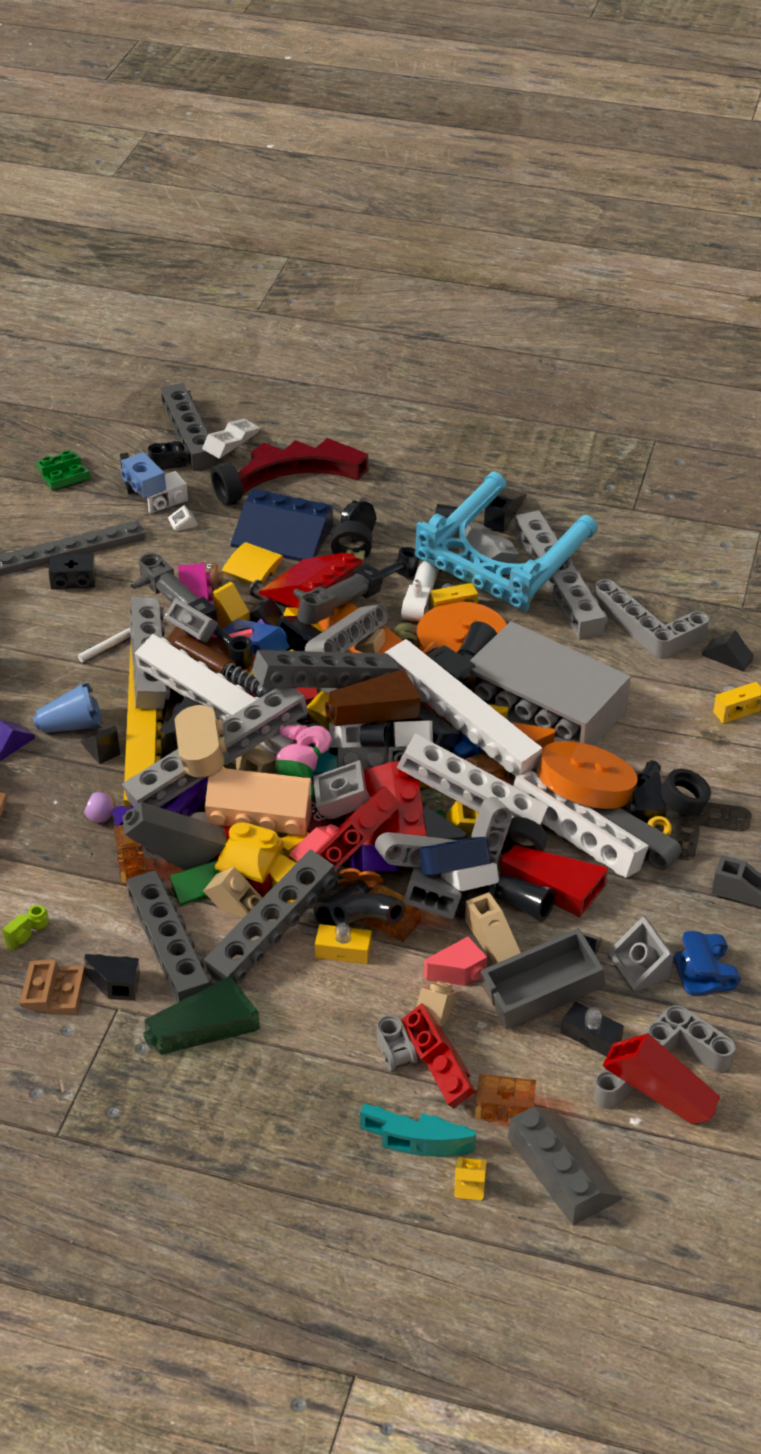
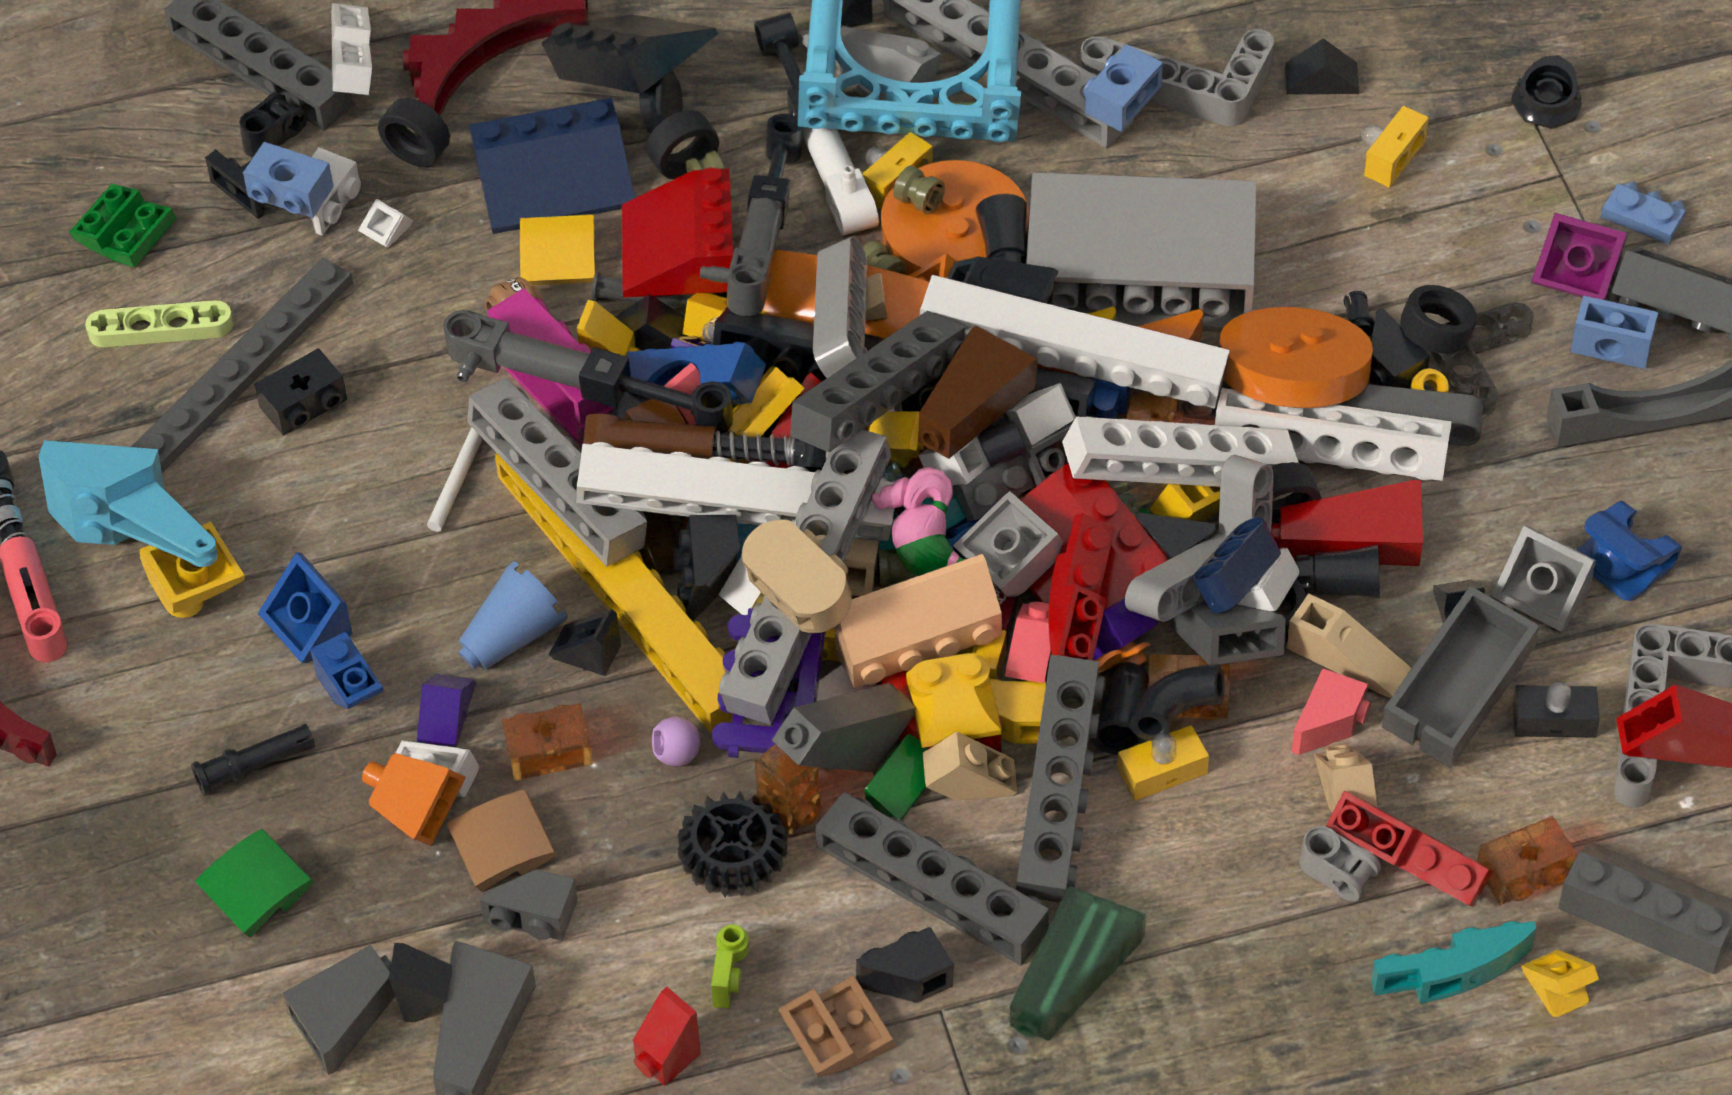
camera: 30 degrees left, 10 degrees up
(17, 510) = (159, 329): none -> yellowish green beam
(38, 777) = (547, 741): none -> clear orange brick
(67, 865) = (732, 859): none -> black gear
(191, 620) = (607, 394): light grey slope -> none
(352, 486) = (623, 50): none -> black slope
(449, 608) = (922, 191): none -> olive wheel
(600, 606) = (1123, 87): none -> medium blue brick

